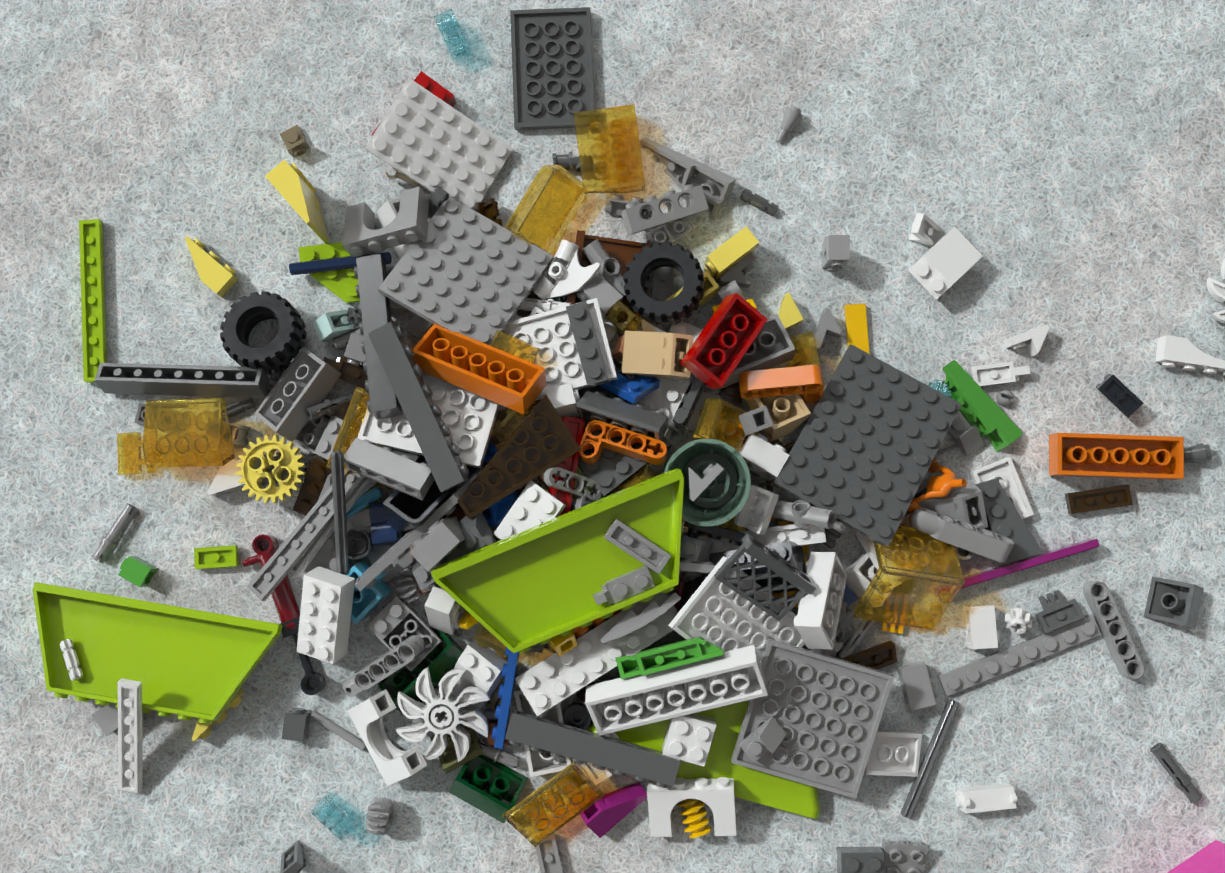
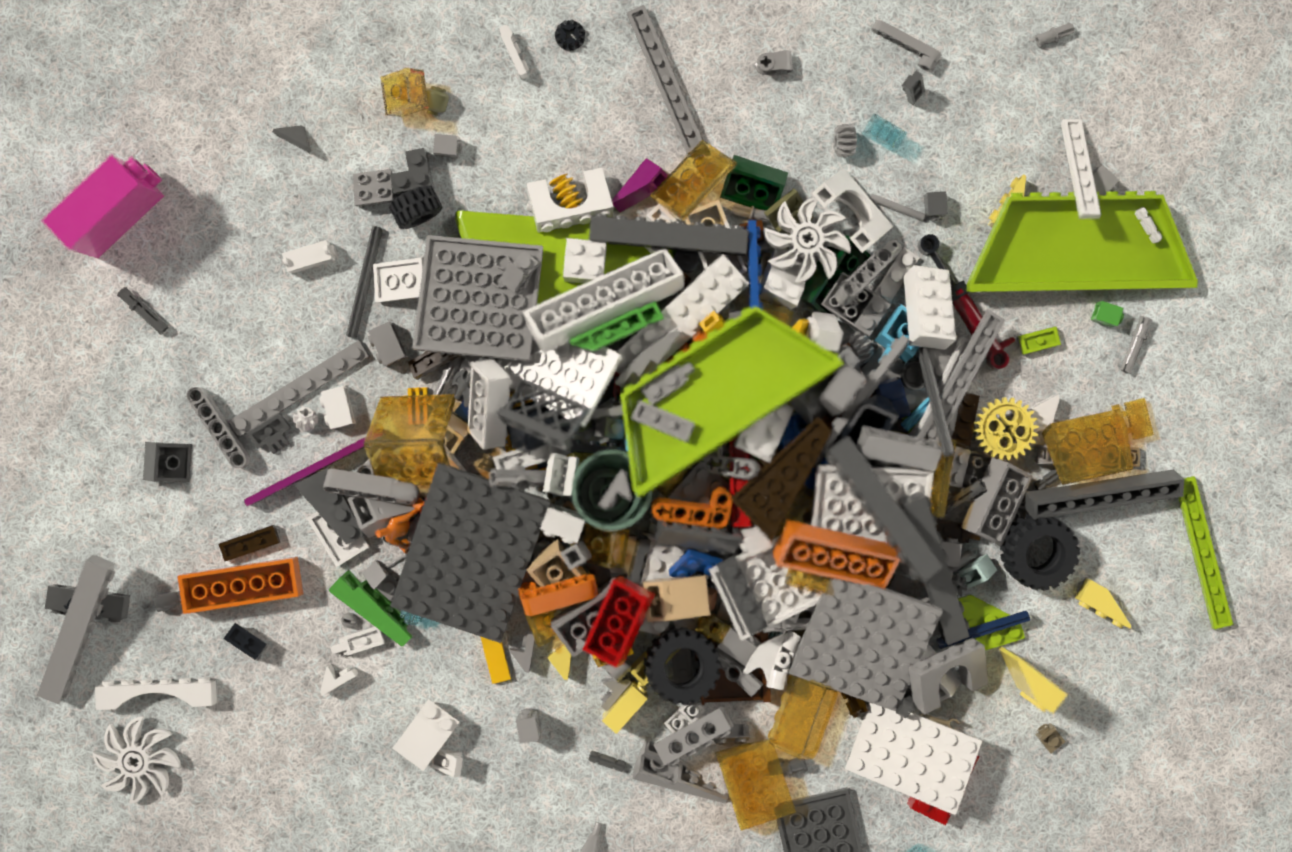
camera: 170 degrees right, 5 degrees up
(356, 655) = (895, 275): none -> white plate
(862, 832) = (415, 207): none -> black tyre

